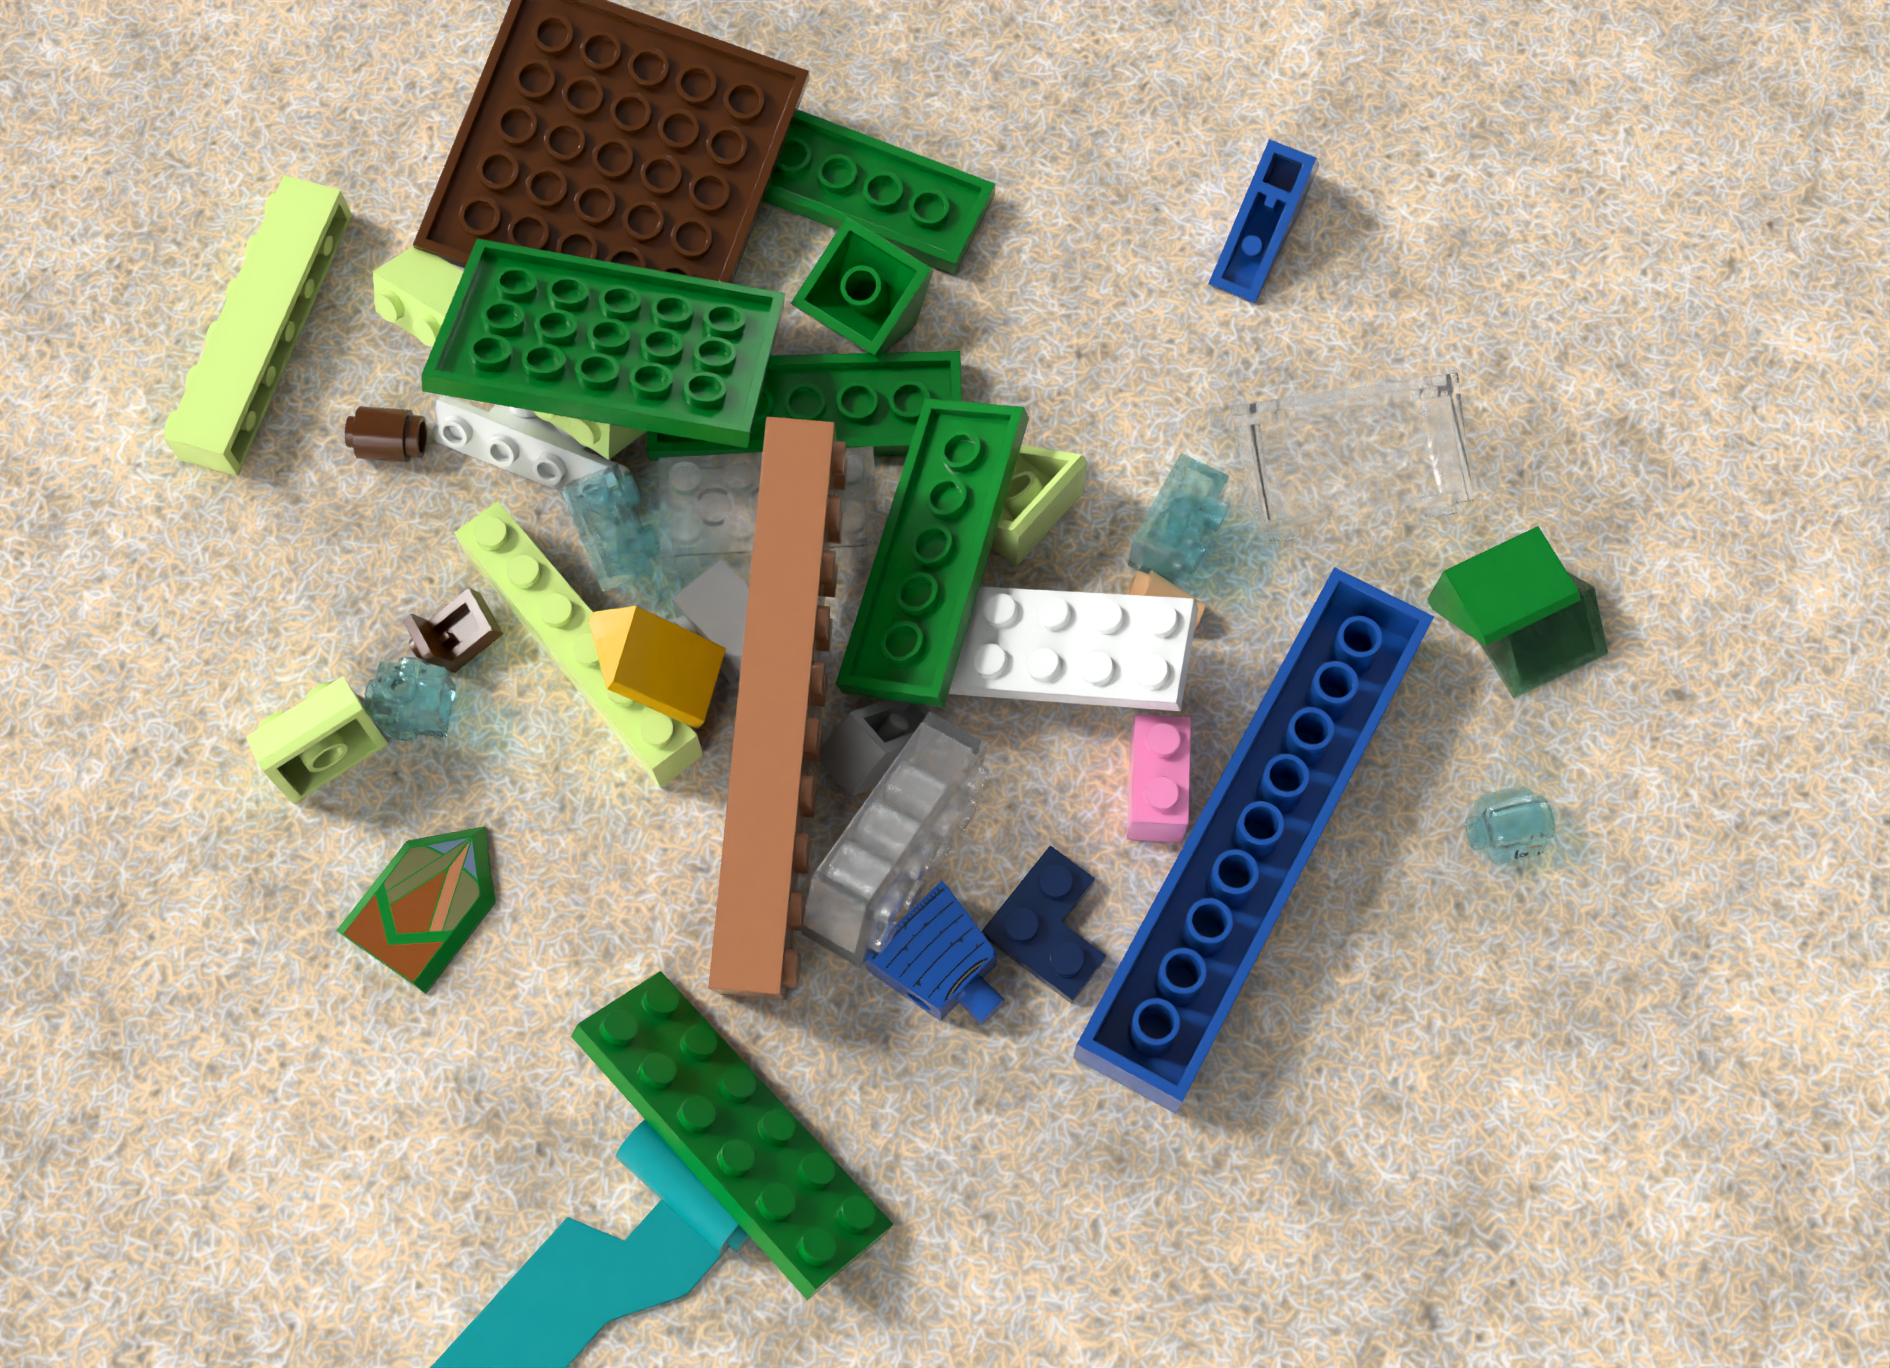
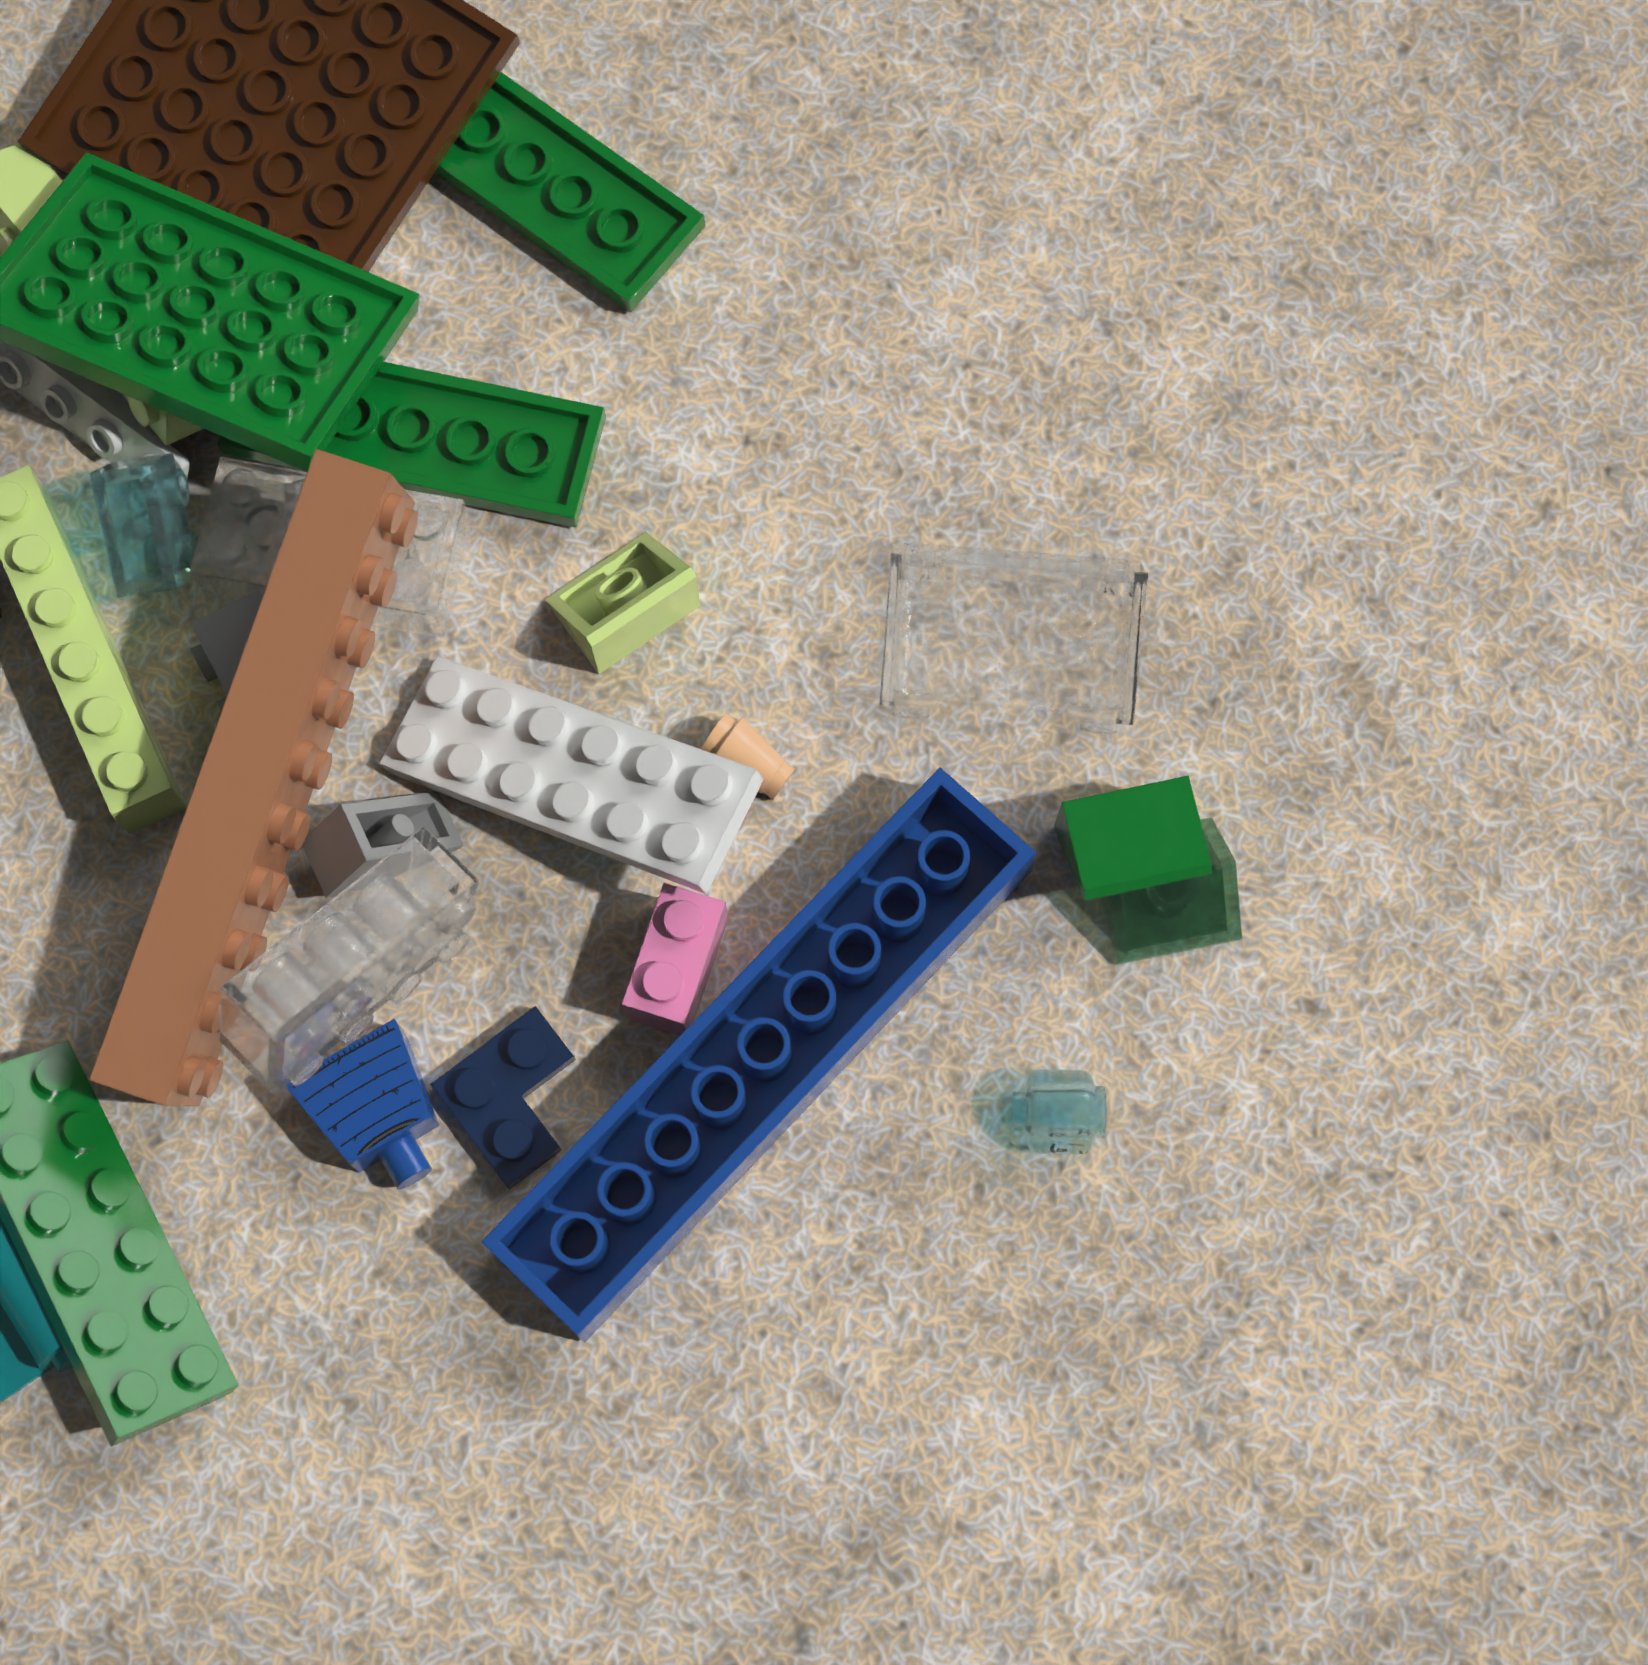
camera: 15 degrees right, 5 degrees up
(656, 662) = (142, 699): yellow slope -> none
(865, 289) = (512, 311): green slope -> none
(933, 552) = (494, 639): green plate -> none
(1179, 520) = (789, 668): clear light blue brick -> none
(1264, 220) = (1003, 330): blue slope -> none

